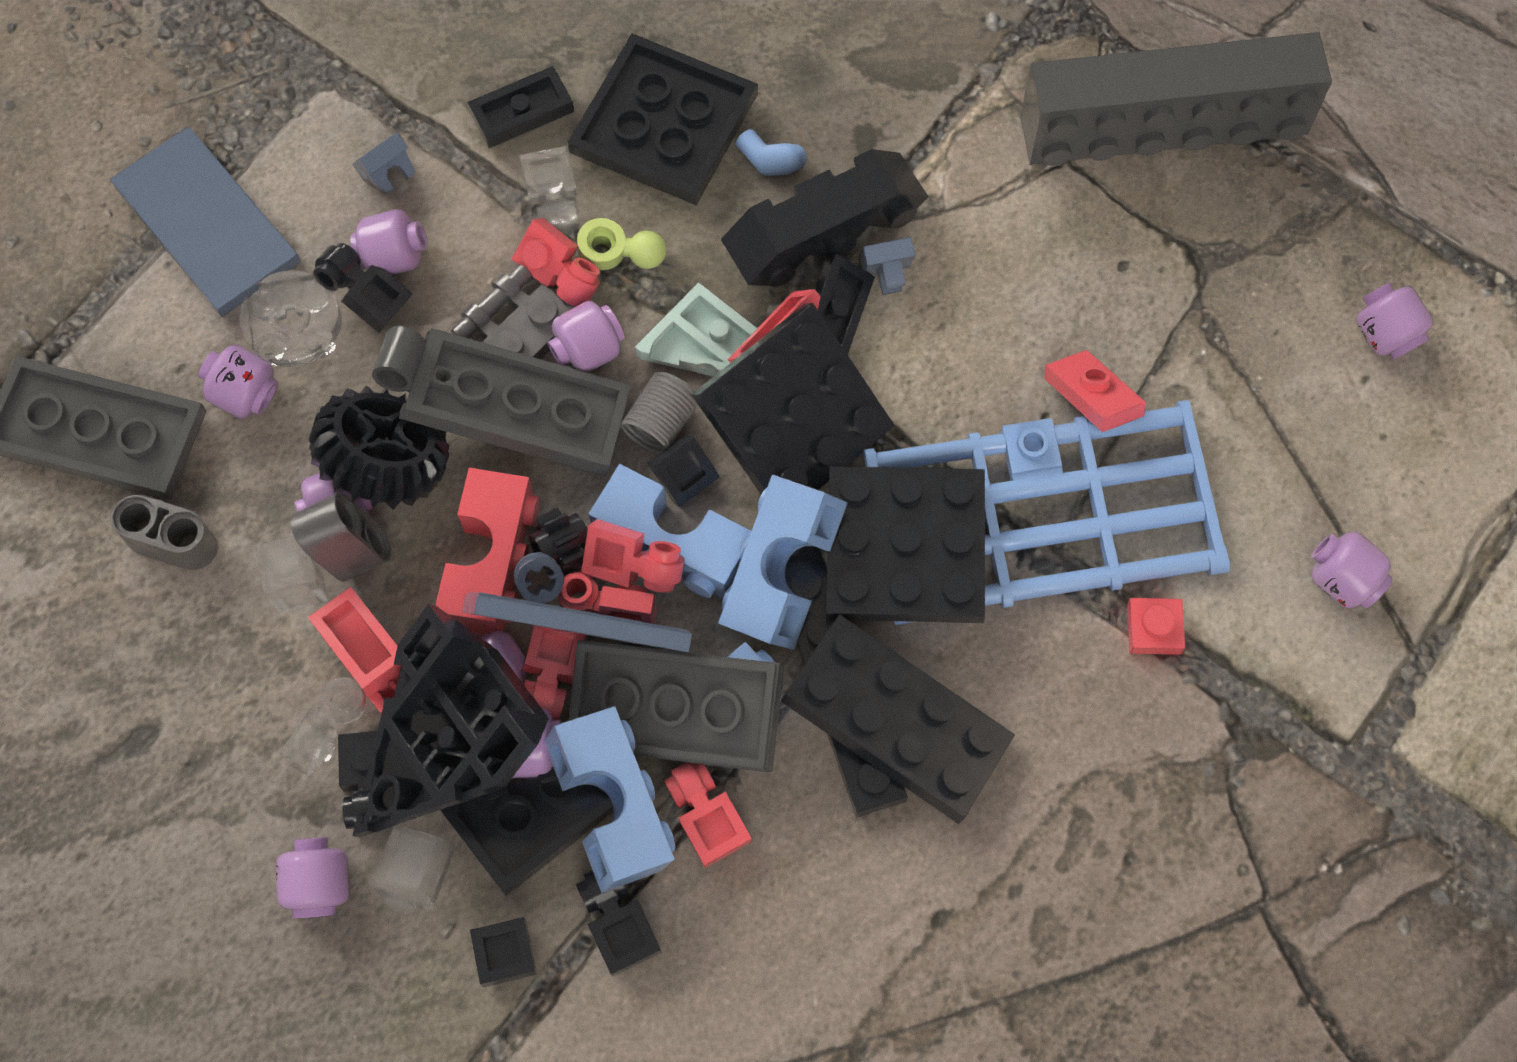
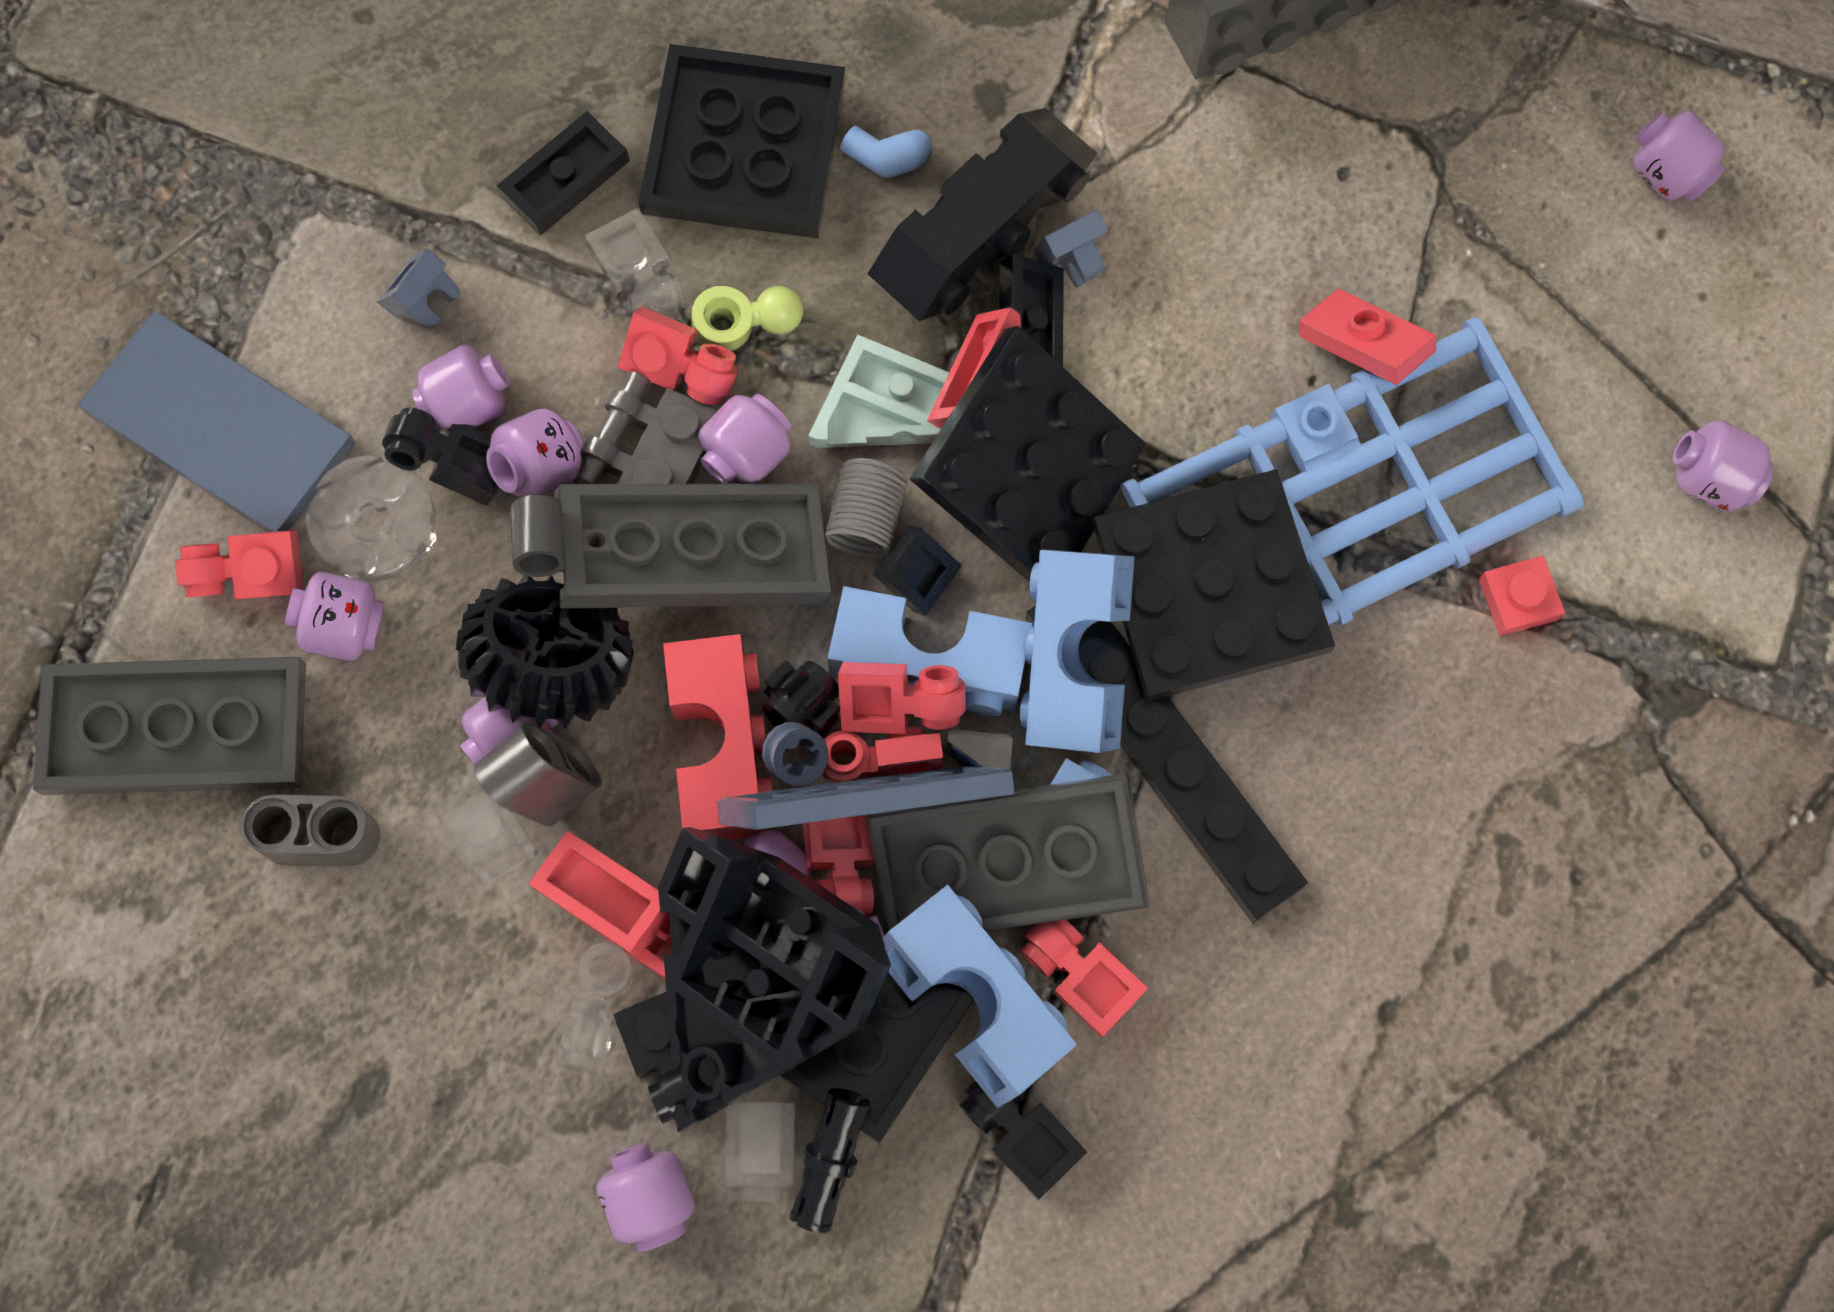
camera: 20 degrees left, 5 degrees up
(195, 329) = (257, 564): none -> coral plate
(425, 302) = (534, 453): none -> lavender head
(459, 893) = (829, 1160): none -> black pin
(503, 952) = (902, 1212): black plate -> none
(687, 617) = (979, 748): none -> flat silver slope
(898, 719) = (1270, 795): black plate -> none

